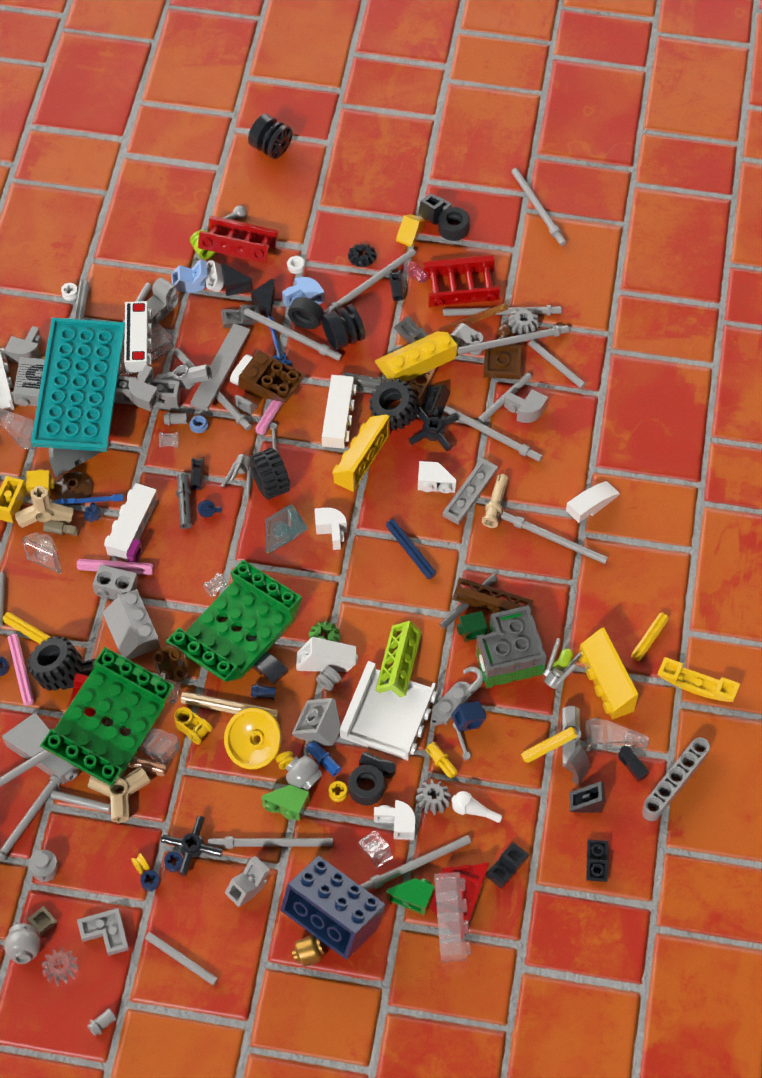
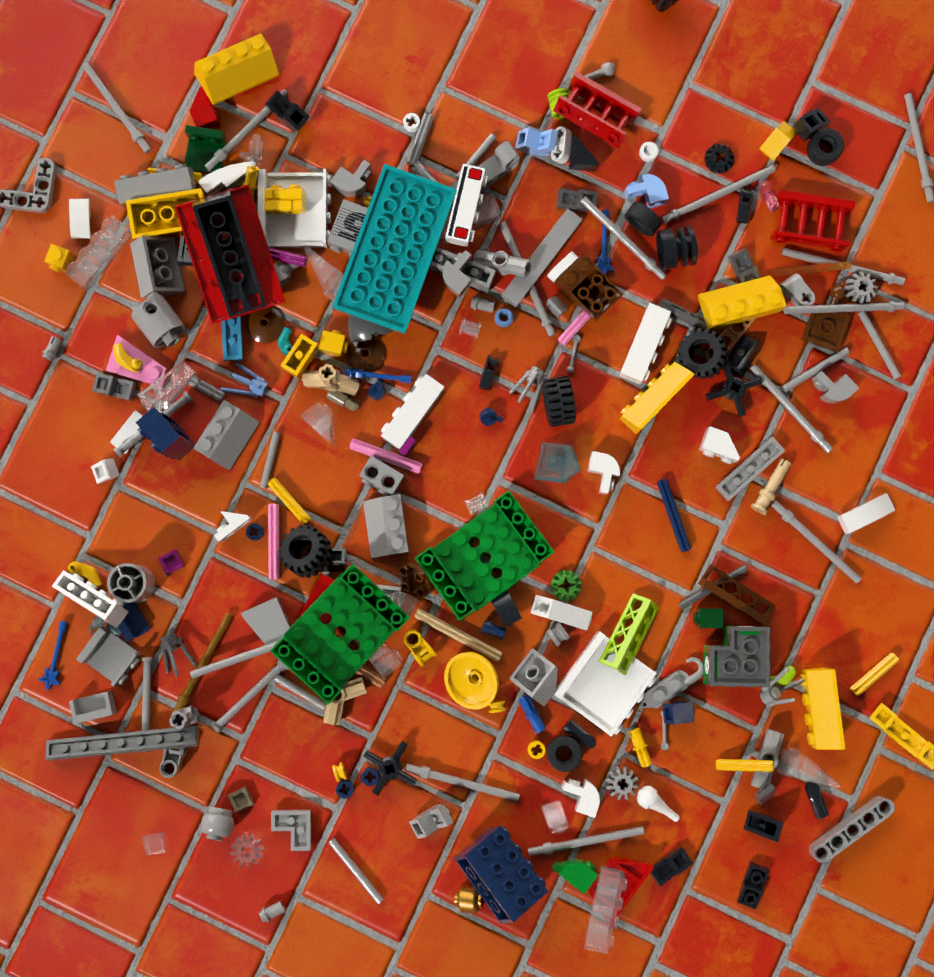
camera: 15 degrees right, 25 degrees up
(43, 865) = (252, 748): light grey piece -> none
(182, 482) = (465, 422): dark grey pin -> none
(264, 297) = (606, 185): black slope -> none
(287, 801) = (488, 749): bright green slope -> none
(303, 773) = (509, 728): light grey piece -> none

